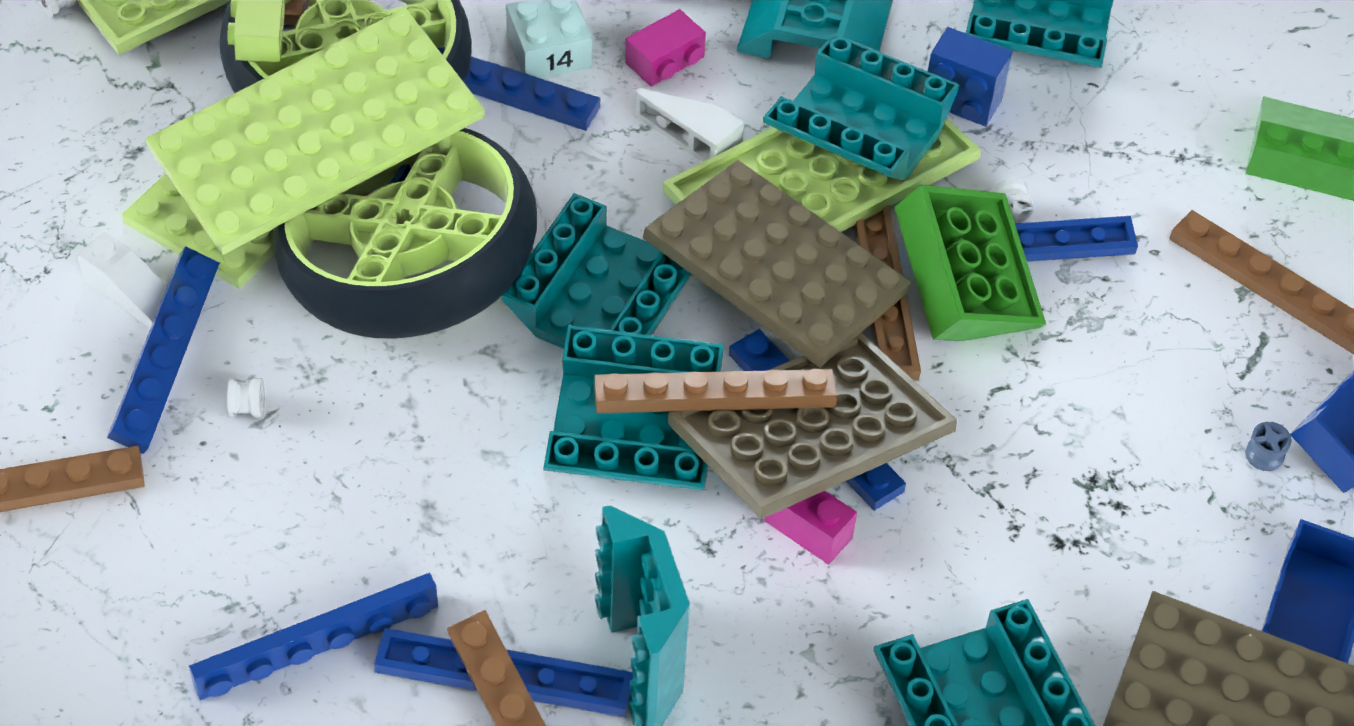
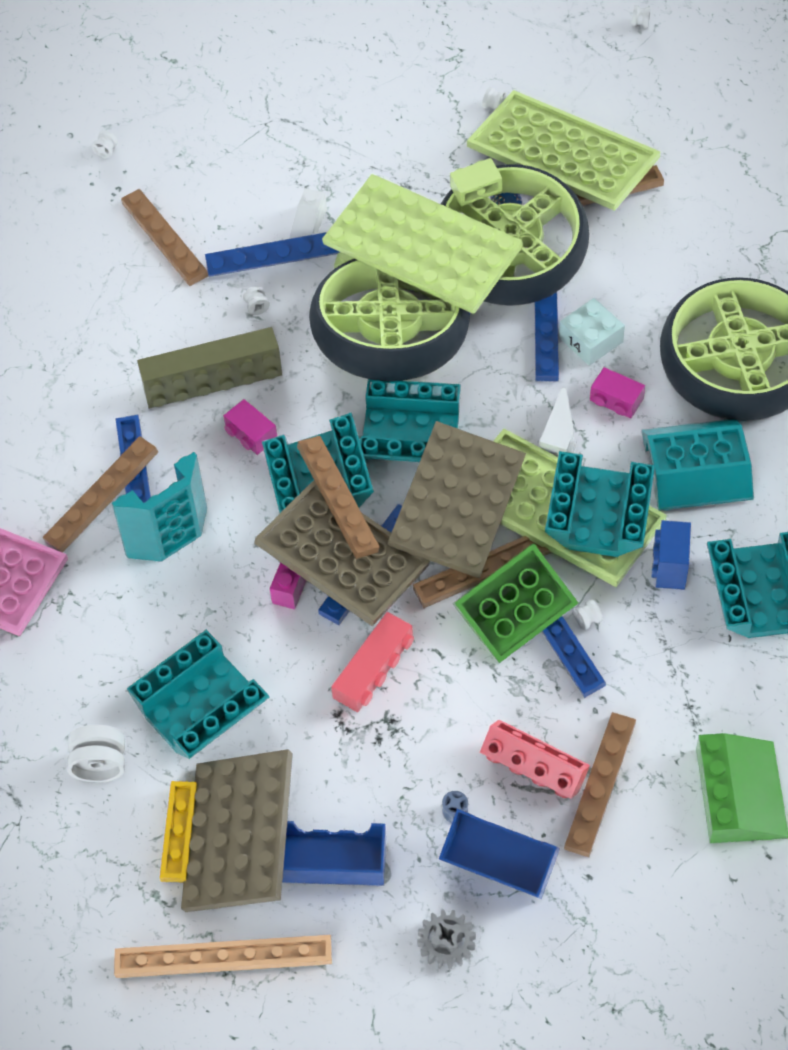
camera: 75 degrees right, 5 degrees up
(313, 636) = (126, 391): blue plate -> none
(358, 489) = (210, 367): none -> olive brick
(493, 482) = (249, 426): none -> dark pink brick
(1007, 462) = (372, 662): none -> coral brick
(1228, 329) = (534, 759): none -> coral brick

